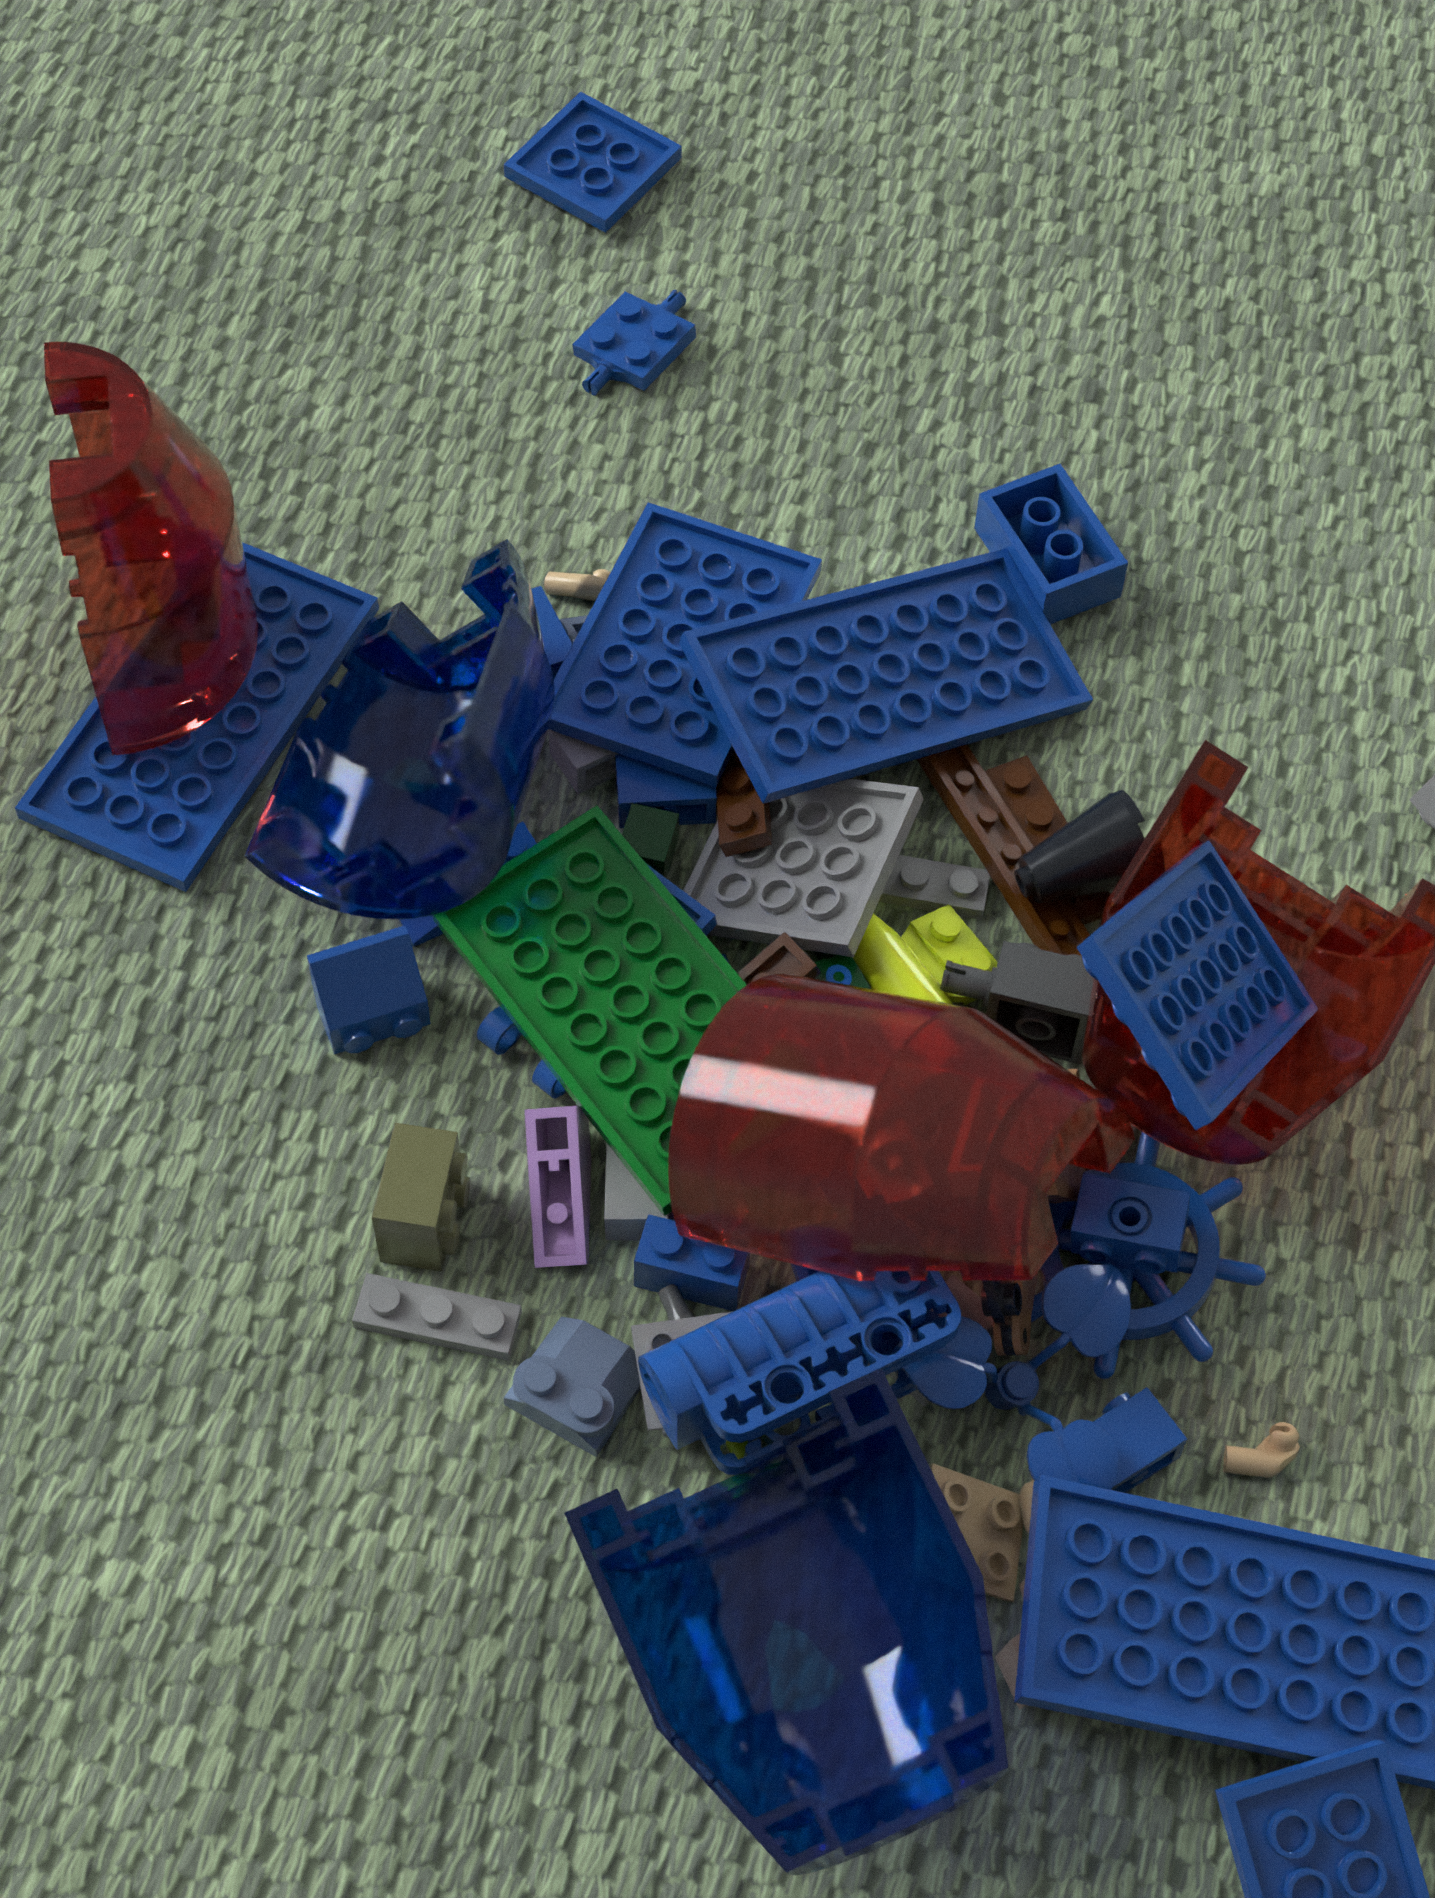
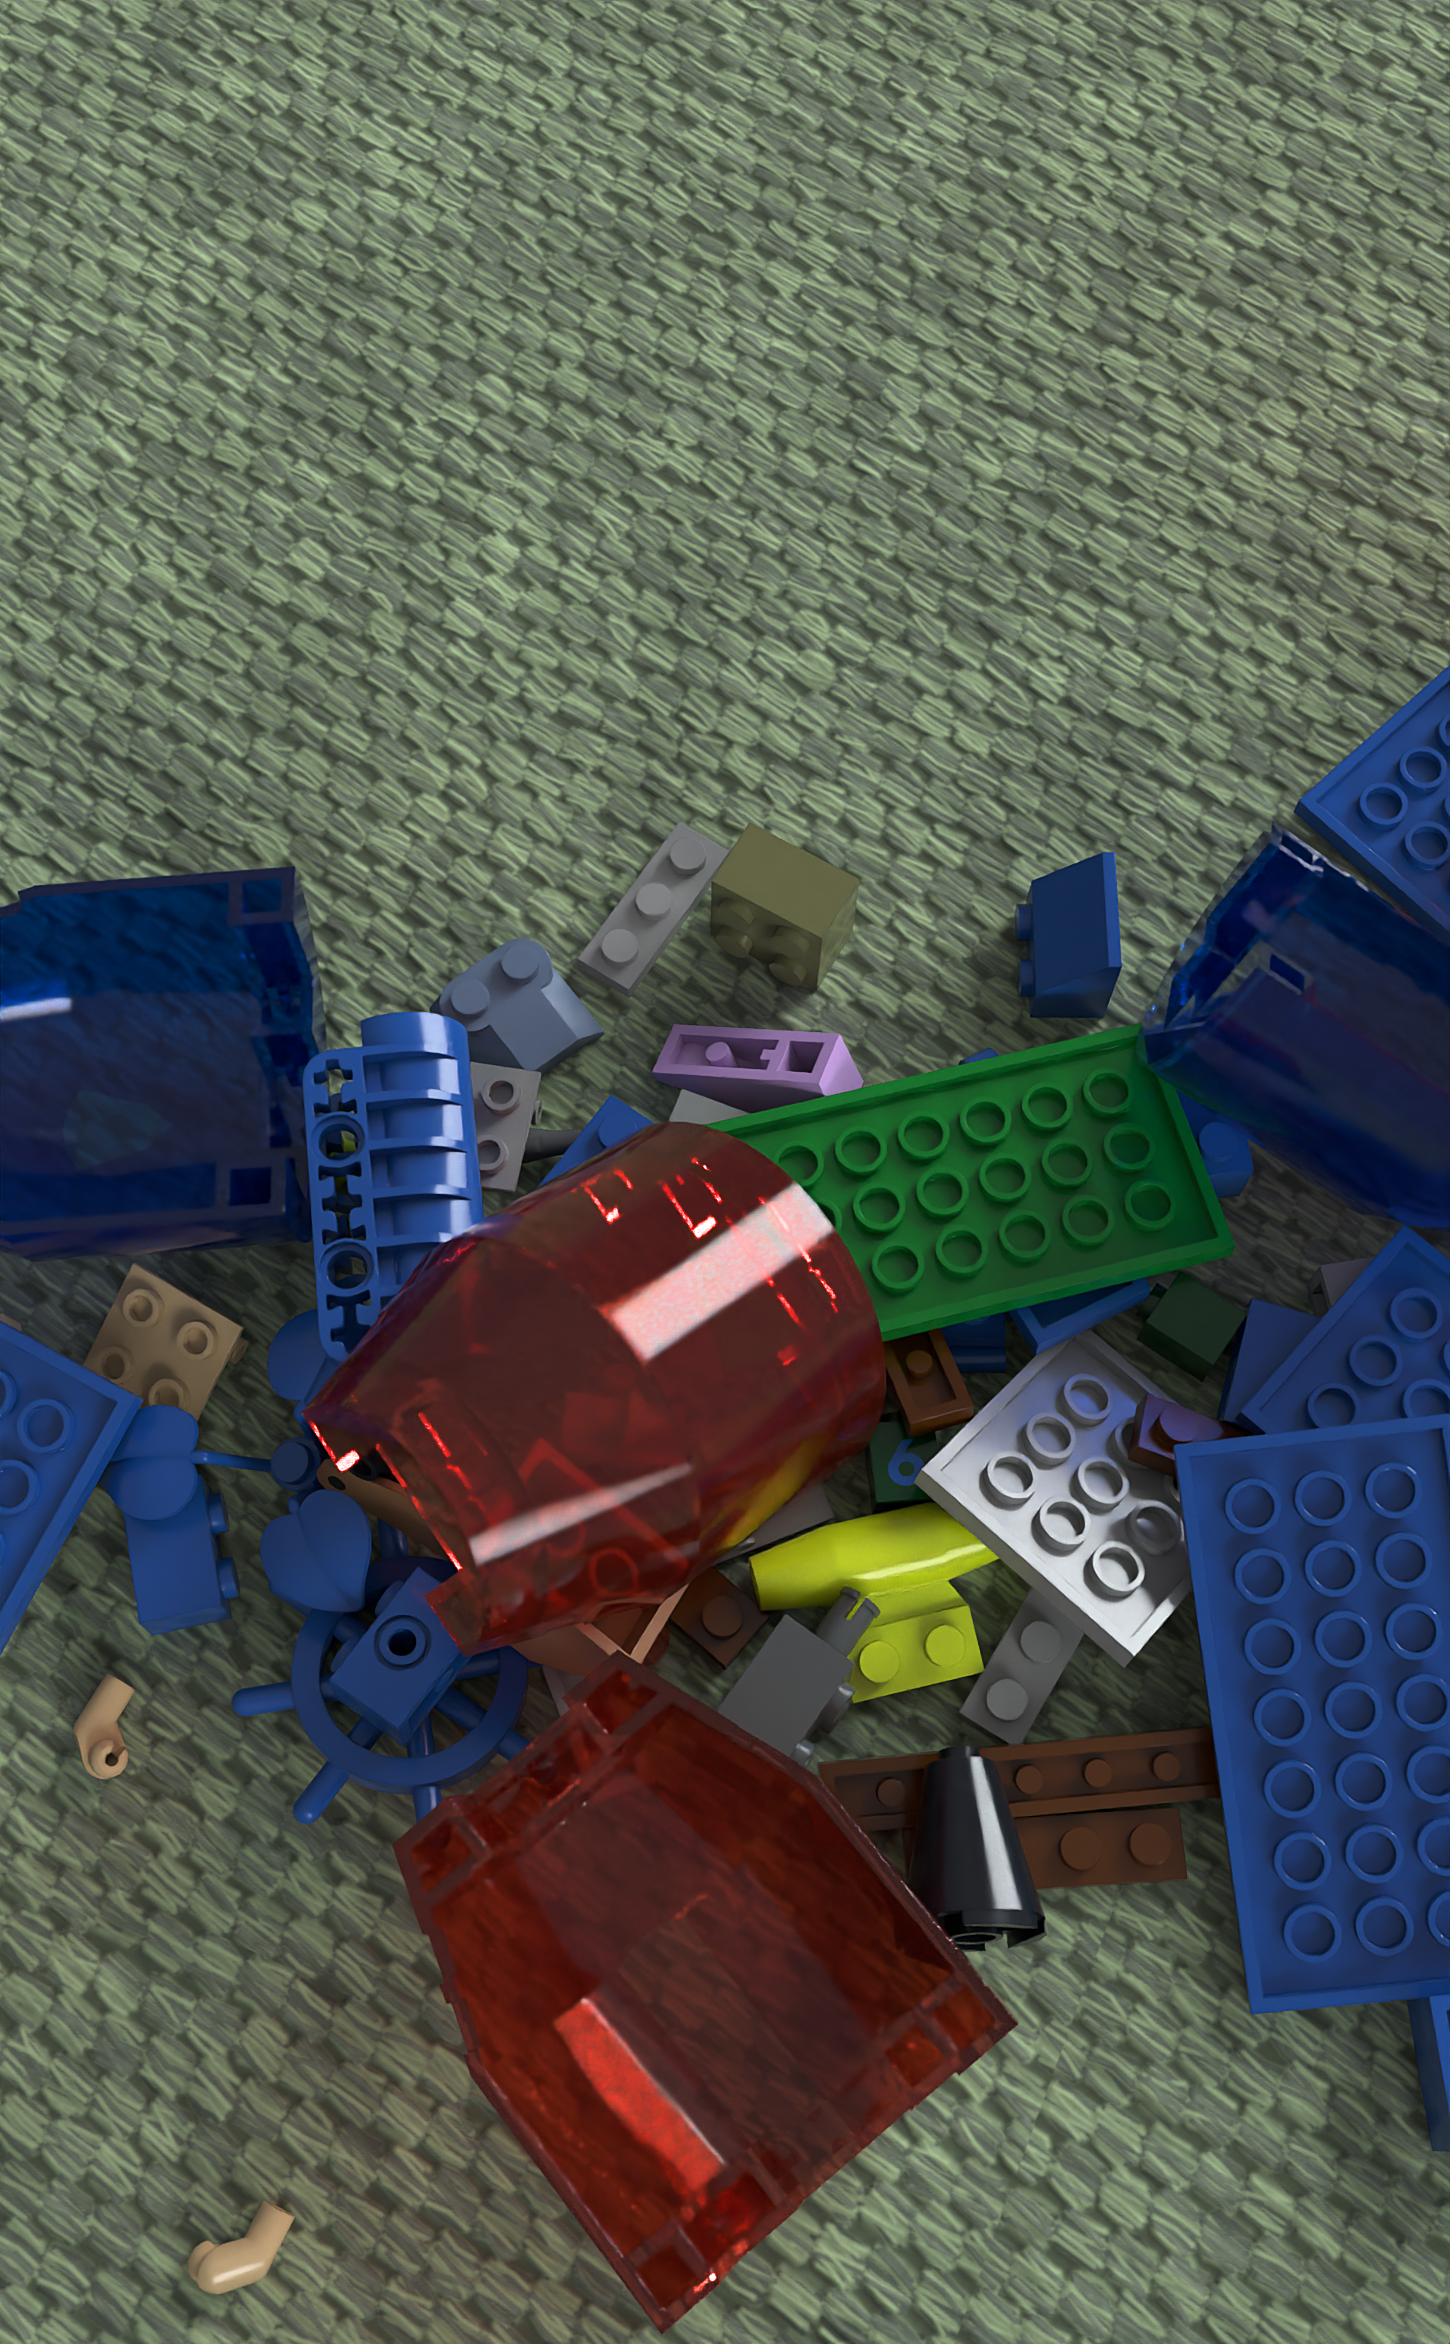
camera: 110 degrees right, 10 degrees up
(1198, 983) = (671, 1865): blue plate -> none

